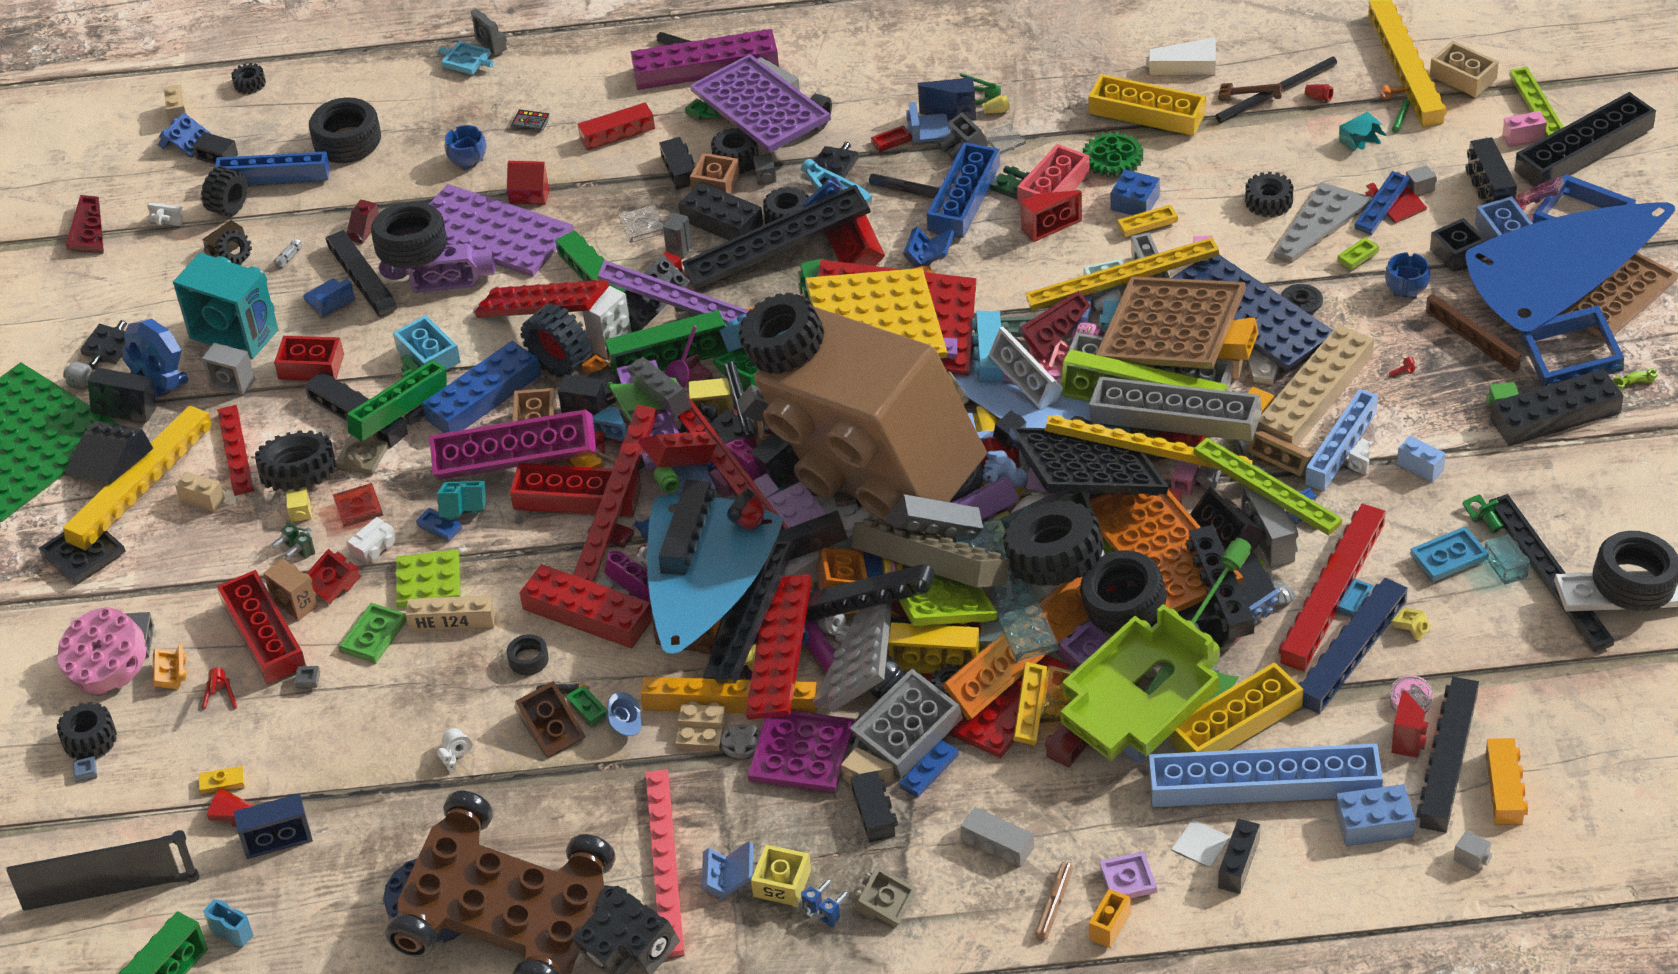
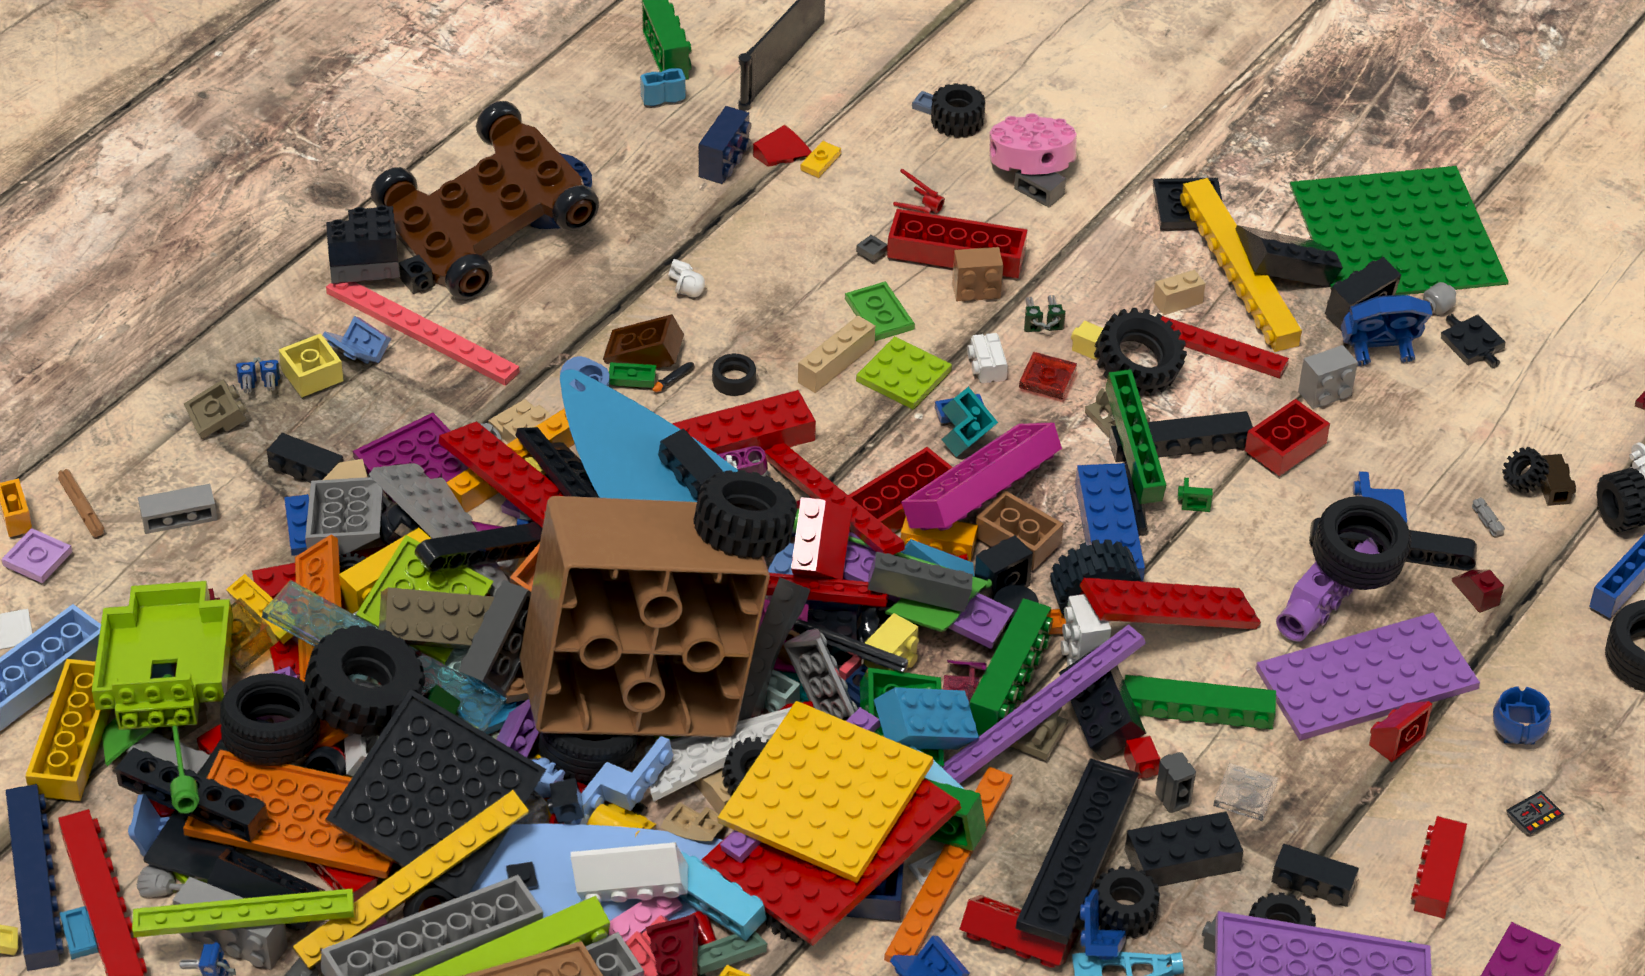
camera: 125 degrees right, 0 degrees up
(168, 668) = (980, 182): light orange bracket -> none
(226, 304) = (1408, 395): teal brick -> none
(332, 575) = (972, 314): red plate -> none
(426, 342) = (1212, 518): medium azure brick -> none
(716, 171) = (1247, 877): nougat brick -> none

